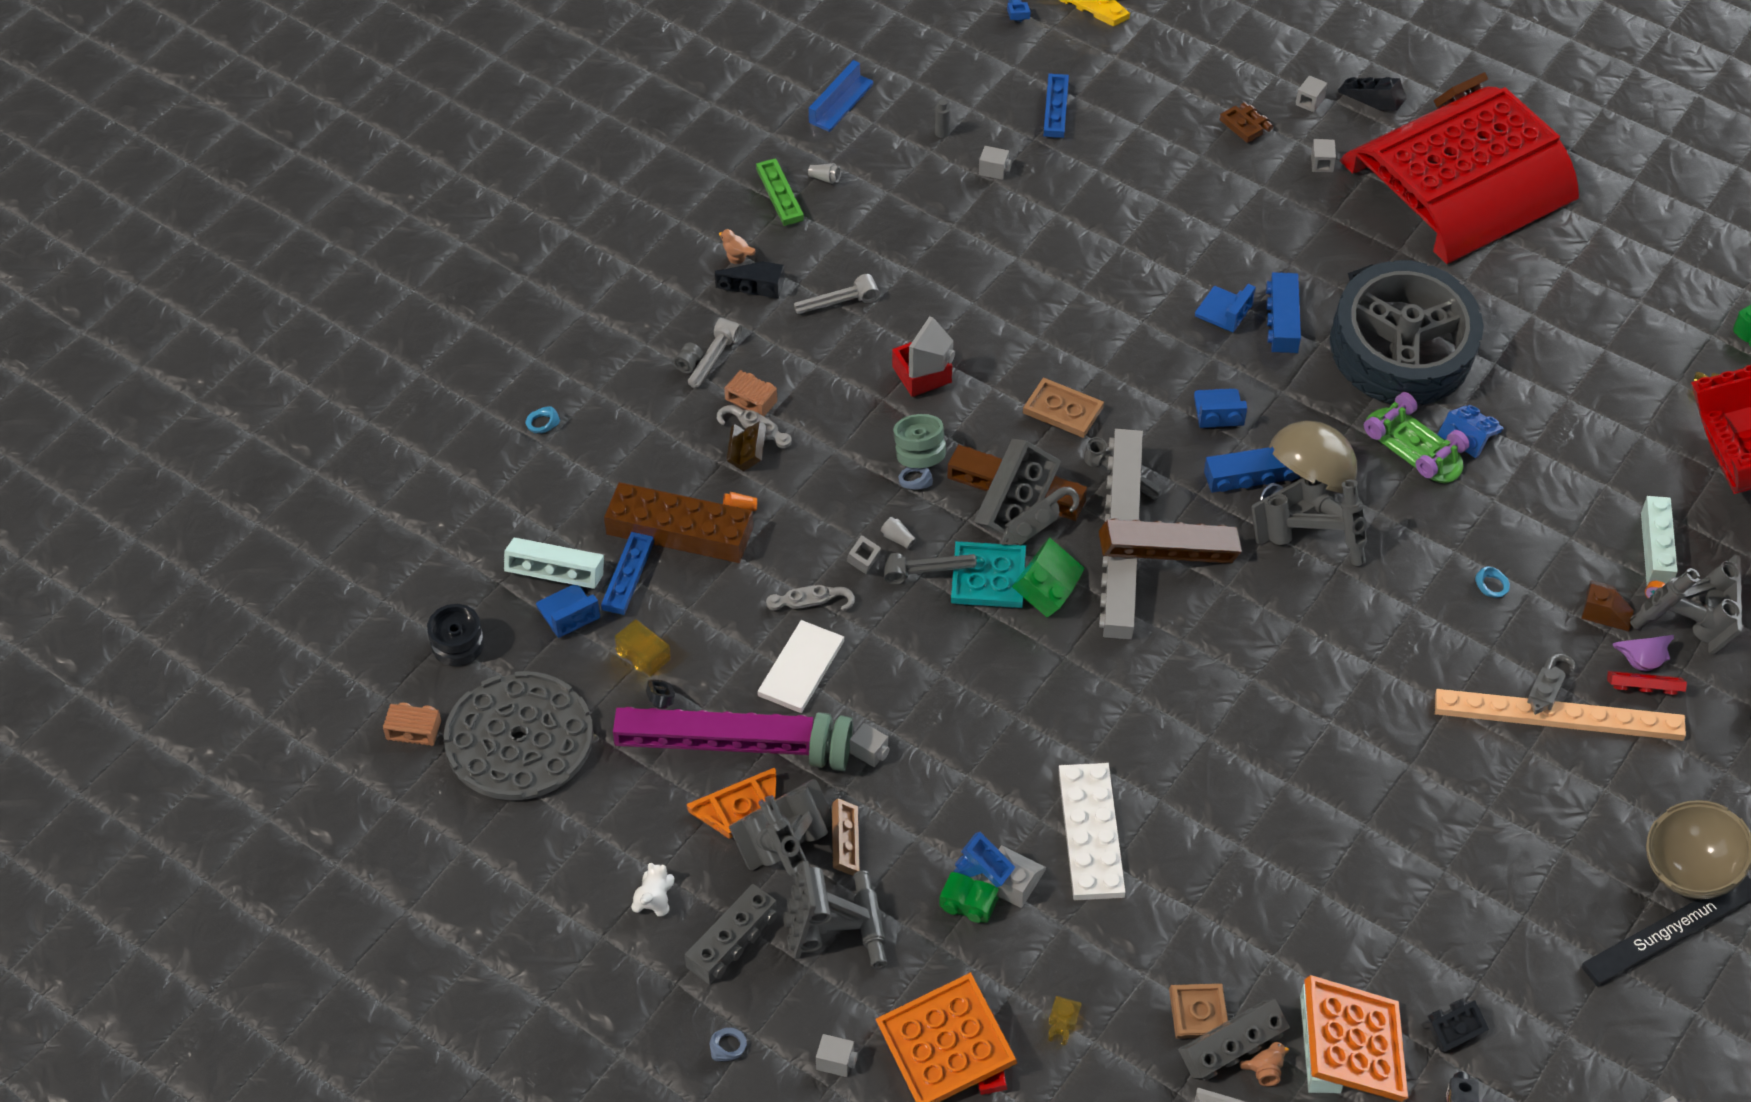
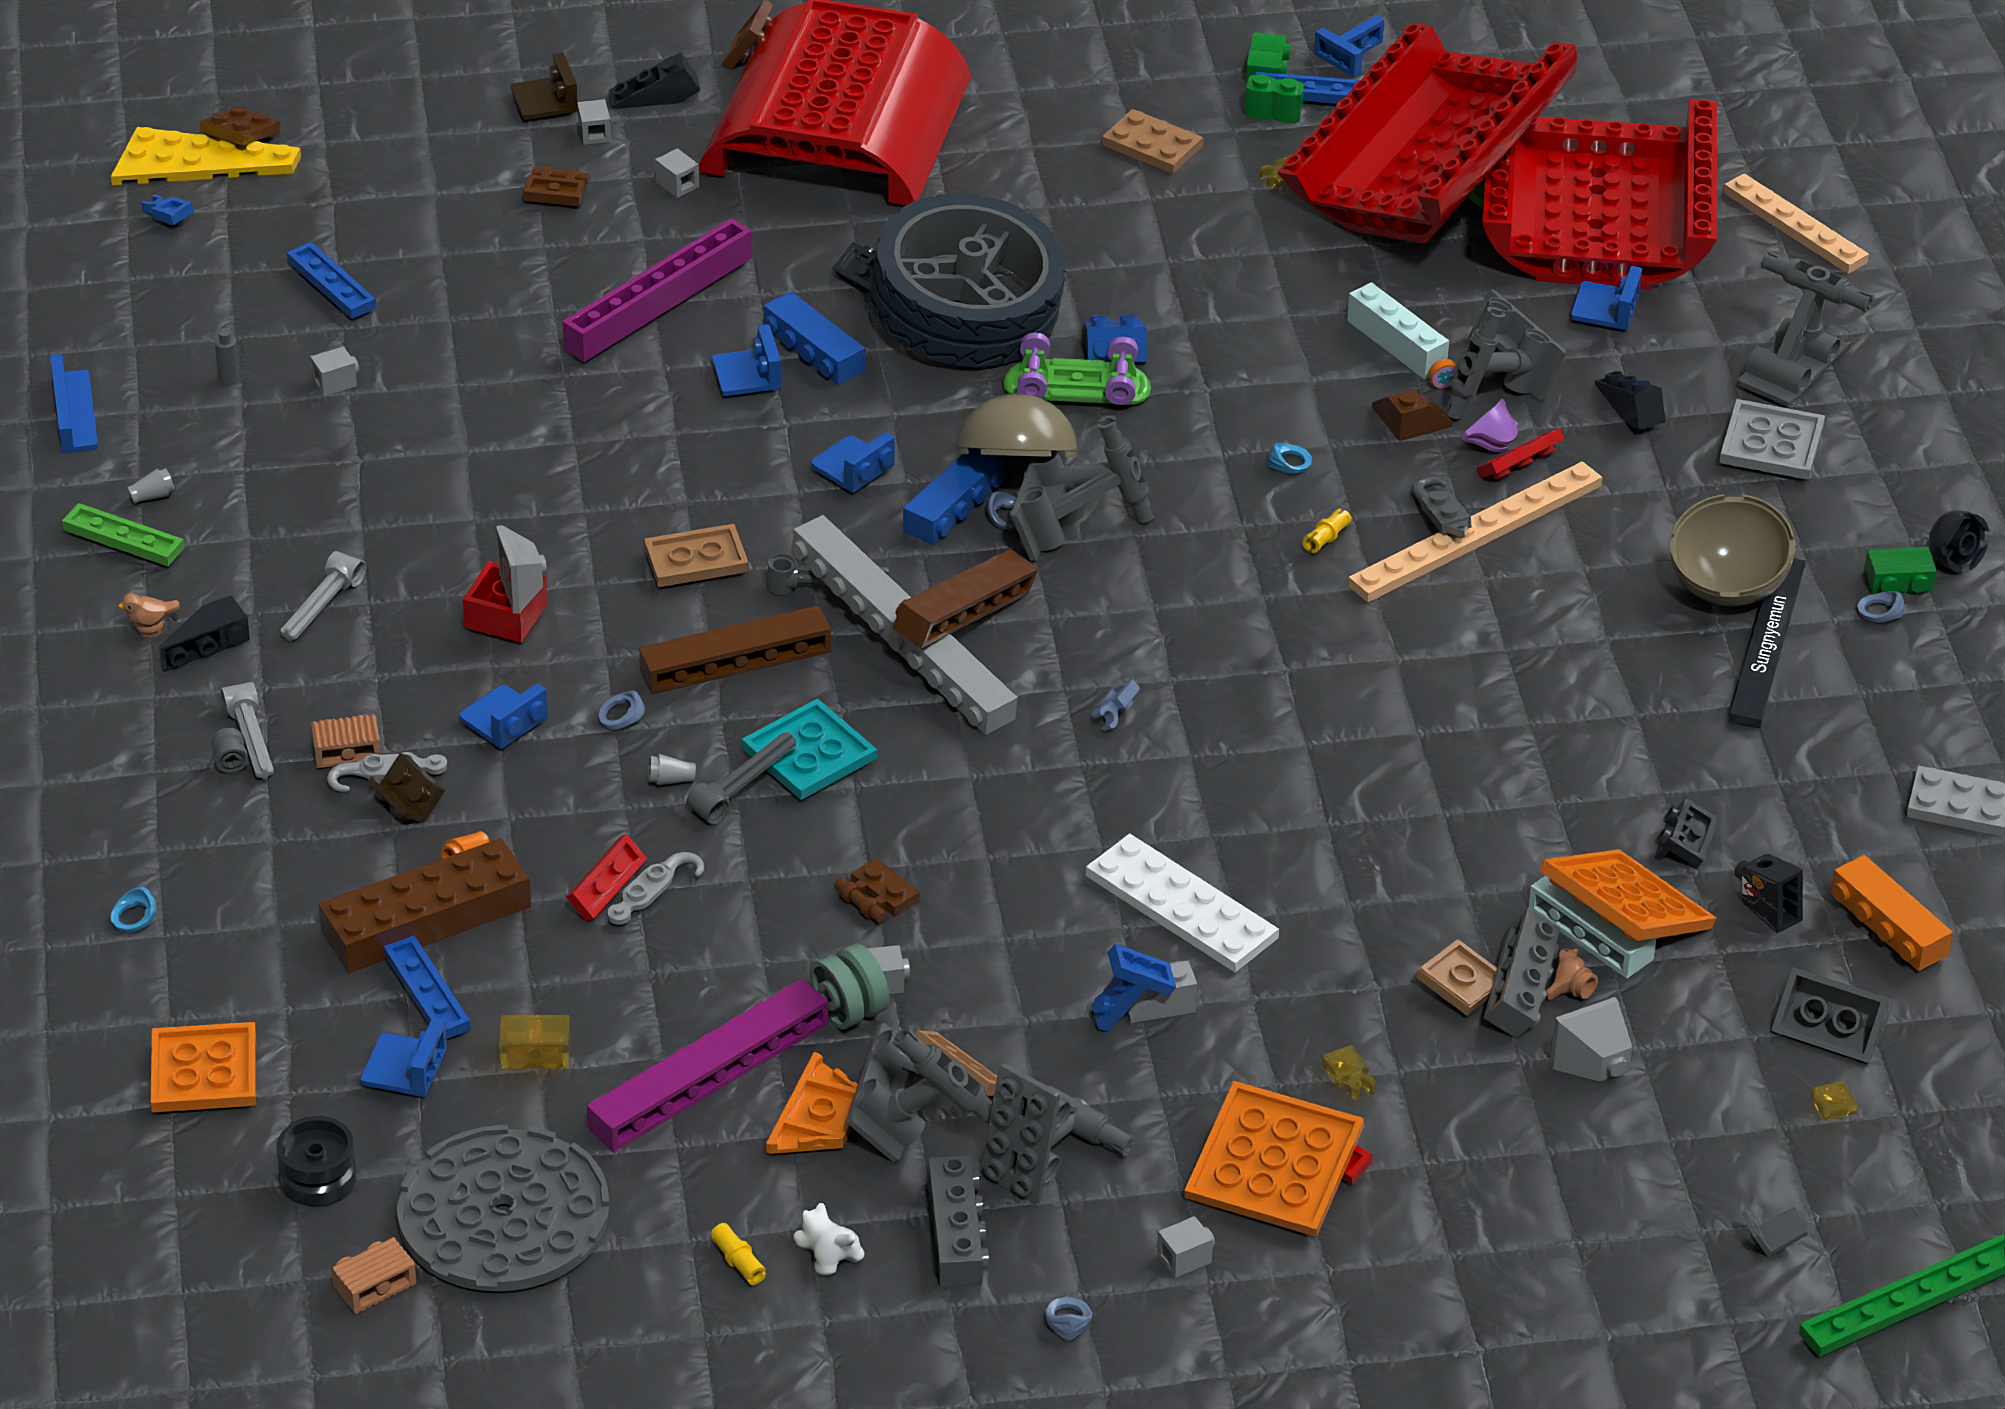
camera: 45 degrees left, 10 degrees down
(471, 536) = (203, 1067): none -> orange plate
(553, 562) = (336, 1027): light aqua brick -> none
(600, 860) = (738, 1253): none -> yellow pin
(660, 693) = (609, 1065): black plate -> none
(790, 575) = (606, 877): none -> red plate
(801, 666) = (720, 952): white tile -> none
(850, 435) = (506, 714): none -> blue bracket
(863, 554) = (665, 807): light grey brick -> none
(919, 441) = (594, 668): sand green wheel -> none
(934, 692) = (883, 887): none -> reddish brown plate
(969, 897) = (1142, 1031): green brick -> none
(1017, 486) = (757, 648): dark grey slope -> none
(1037, 517) = (805, 661): dark grey plate -> none
(1049, 578) = (881, 713): green slope -> none
(1198, 670) = (1115, 702): none -> sand blue plate
(1225, 223) = (657, 290): none -> magenta brick
(1305, 60) = (548, 95): none -> dark brown bracket
(1458, 647) = (1326, 530): none -> yellow pin
(1647, 311) = (1152, 141): none -> medium nougat plate

